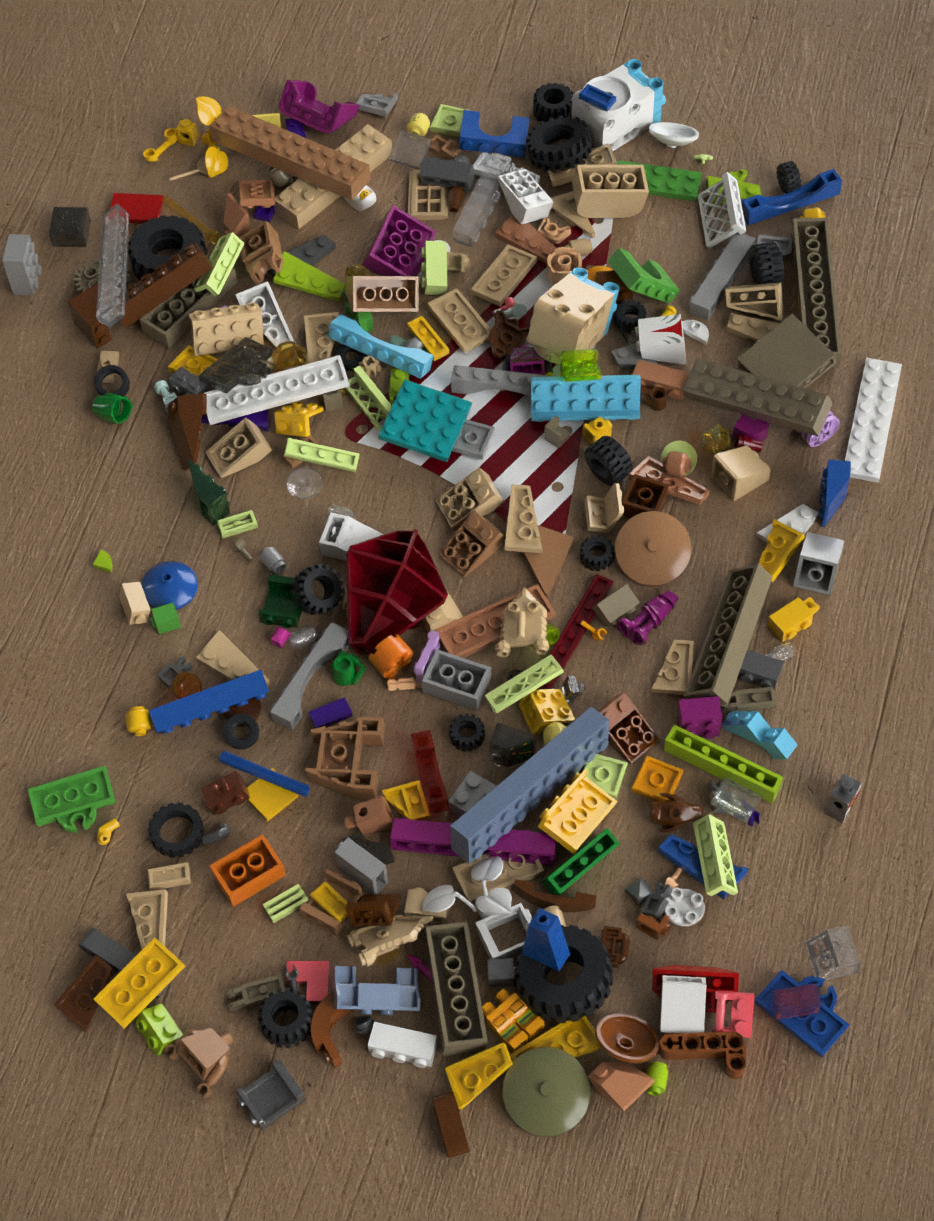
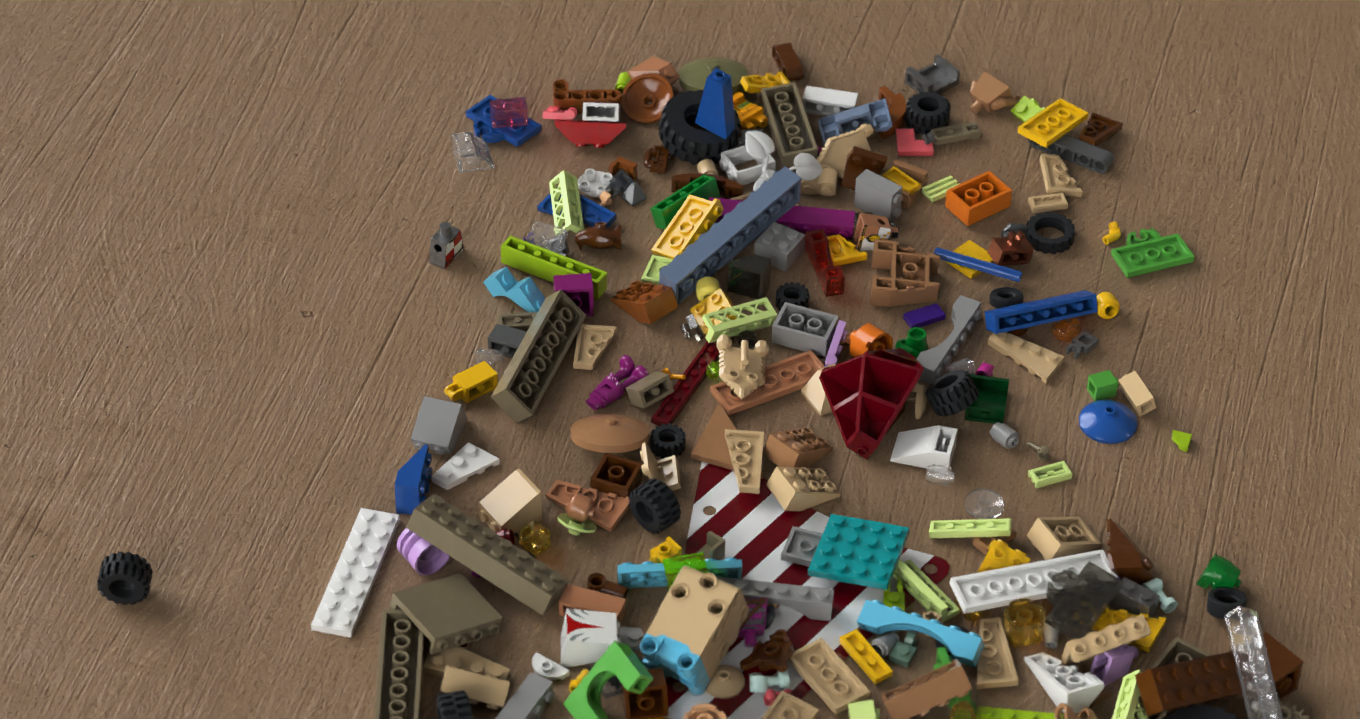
camera: 175 degrees right, 15 degrees down
(210, 496) = (1087, 483): clear green slope -> none
(656, 778) = (618, 267): light orange tile -> none
(780, 548) = (479, 435): yellow wing -> none

